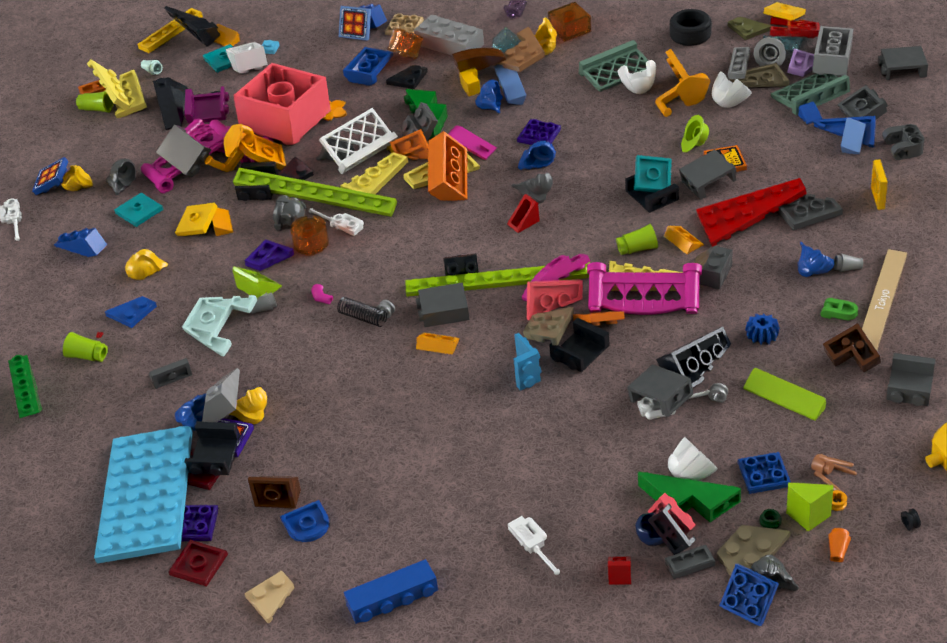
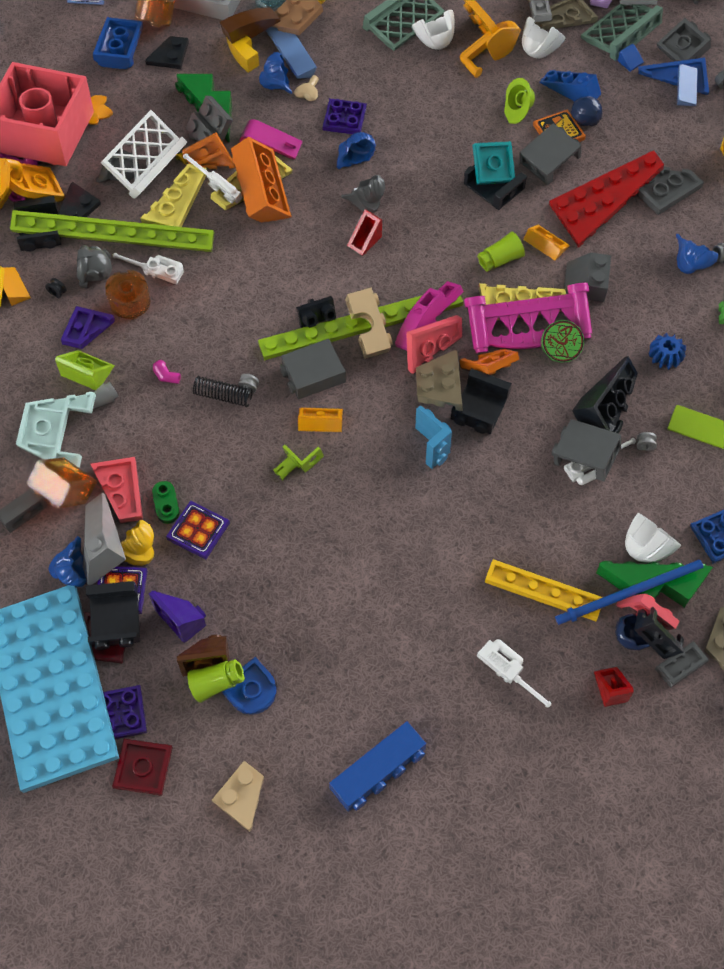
camera: 20 degrees left, 20 degrees up
(206, 353) = (61, 482): none -> clear orange brick
(254, 226) = (55, 287): none -> black bush
(254, 366) = (121, 487): none -> coral wing
(265, 456) = (178, 614): none -> dark purple slope
(276, 505) = (214, 679): none -> lime plant
(287, 383) = (164, 501): none -> green plate
(305, 404) = (198, 530): none -> tile
(401, 367) = (293, 461): none -> lime bracket
(411, 165) = (217, 183): none -> white piece
(499, 261) = (365, 305): none -> tan arch
(514, 113) = (308, 89): none -> tan rock
(585, 489) = (539, 588): none -> yellow plate
(649, 496) = (573, 614): none -> blue bar
(667, 309) = (562, 341): none -> tile
(752, 129) = (572, 84): none -> blue slope
(753, 147) = (587, 111): none -> dark blue hair

